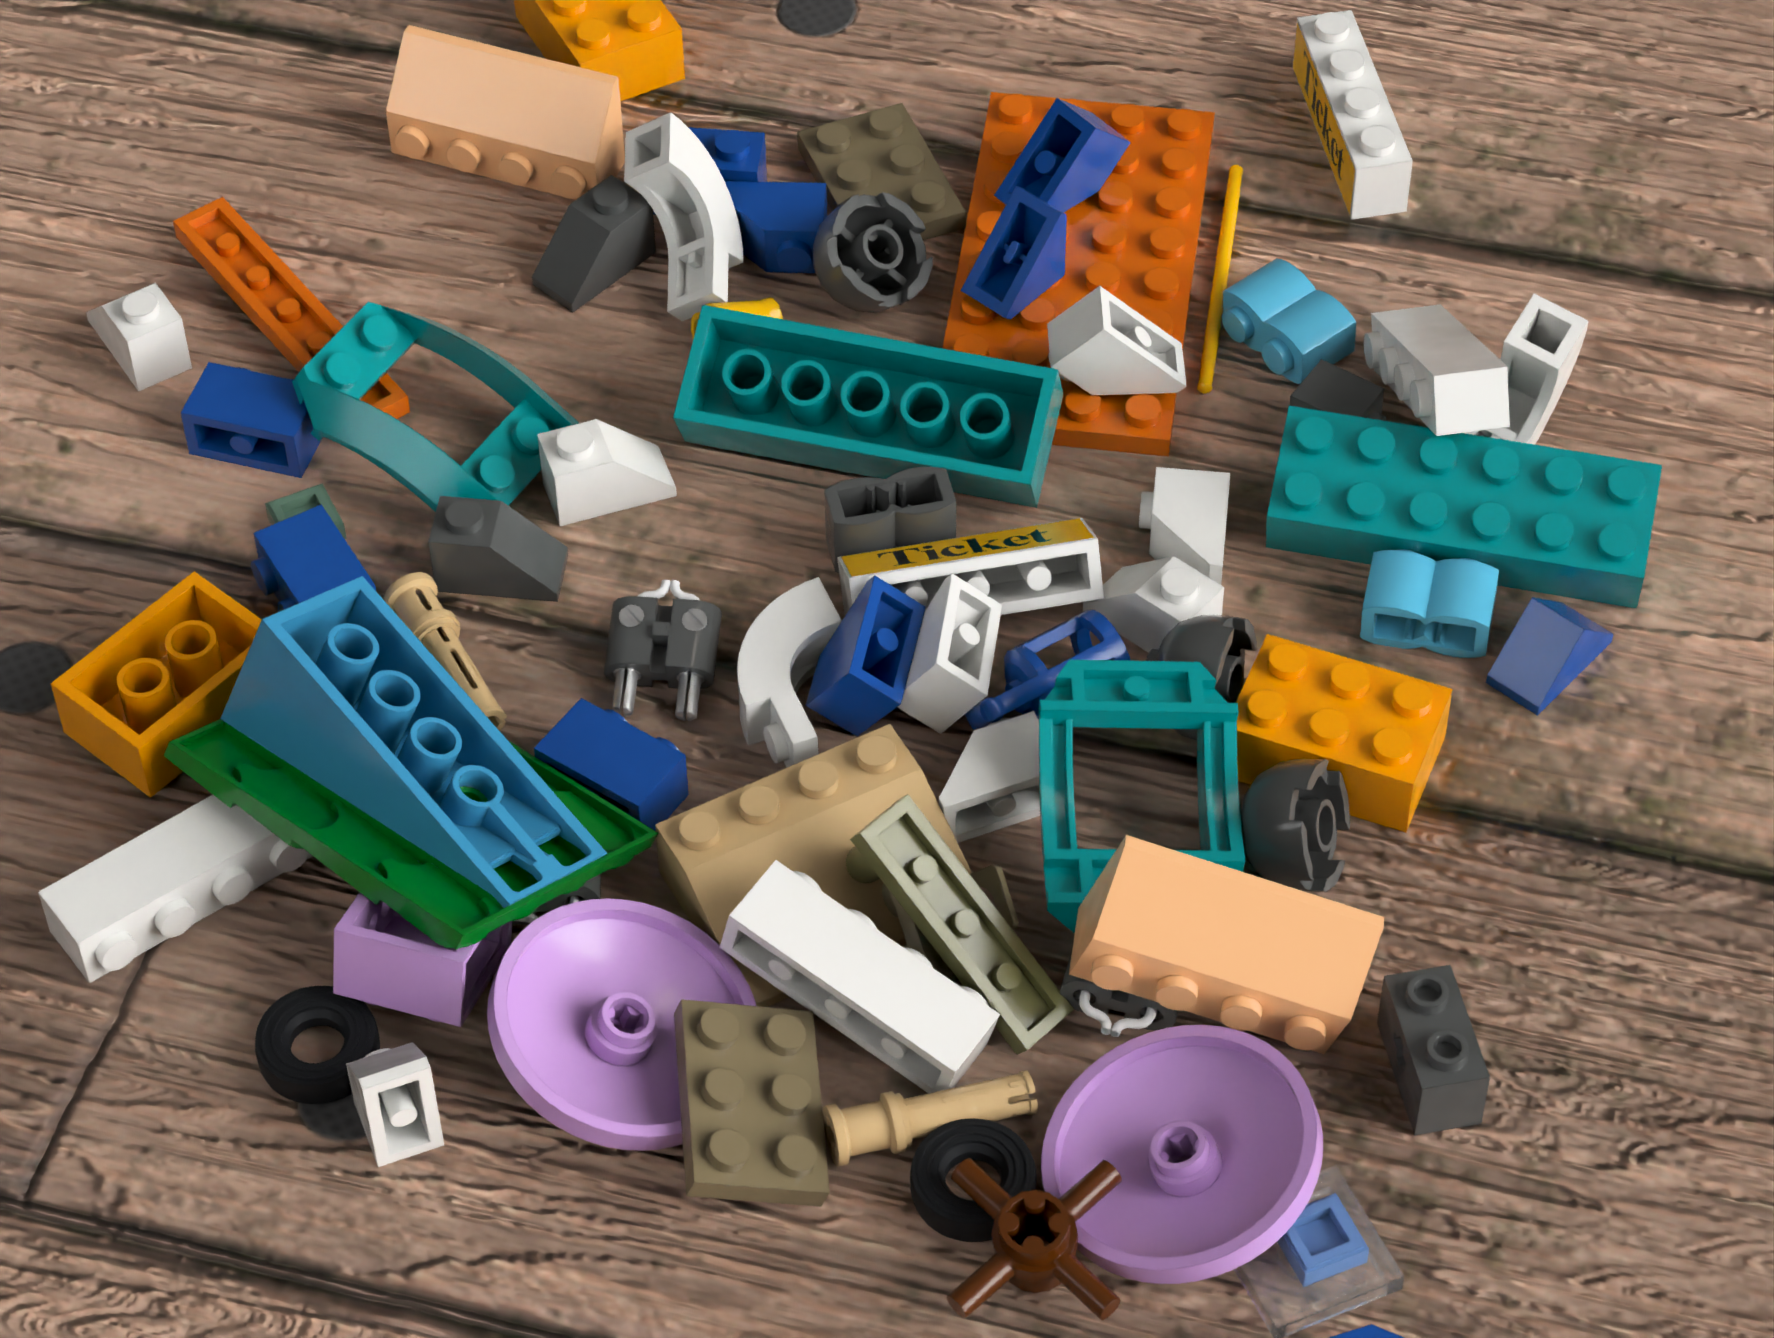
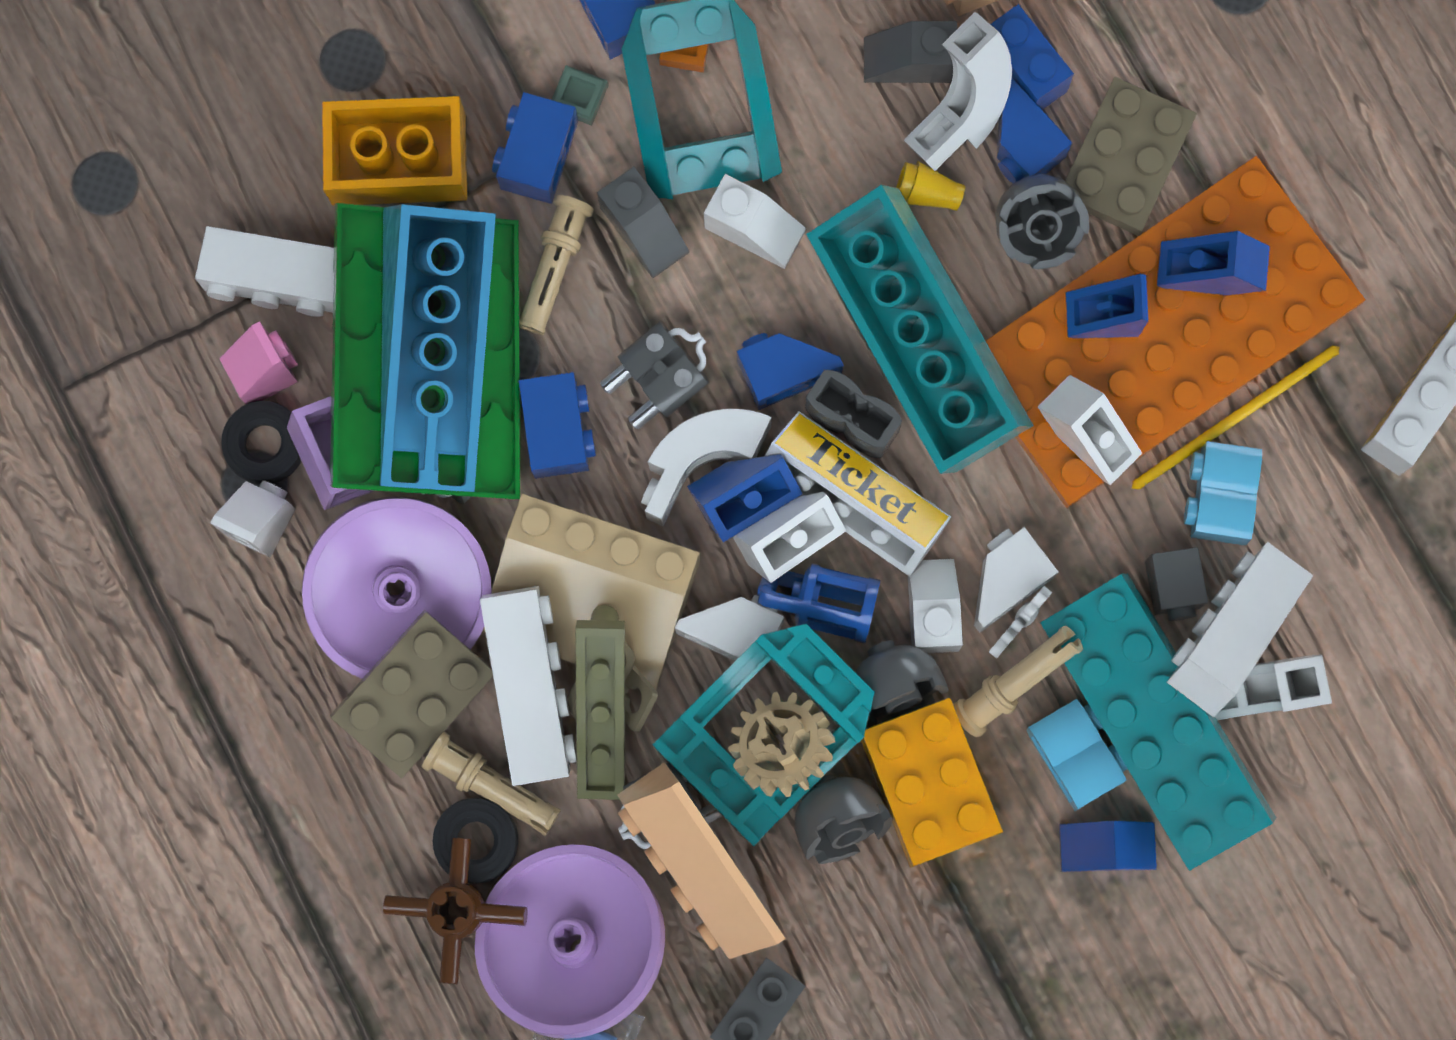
camera: 50 degrees right, 30 degrees up
(236, 959) = (259, 364): none -> bright pink slope
(773, 548) = (782, 367): none -> blue slope
(1170, 781) = (760, 750): none -> tan gear
(1243, 543) = (1023, 618): none -> white animal
(1305, 604) = (1002, 692): none -> tan pin

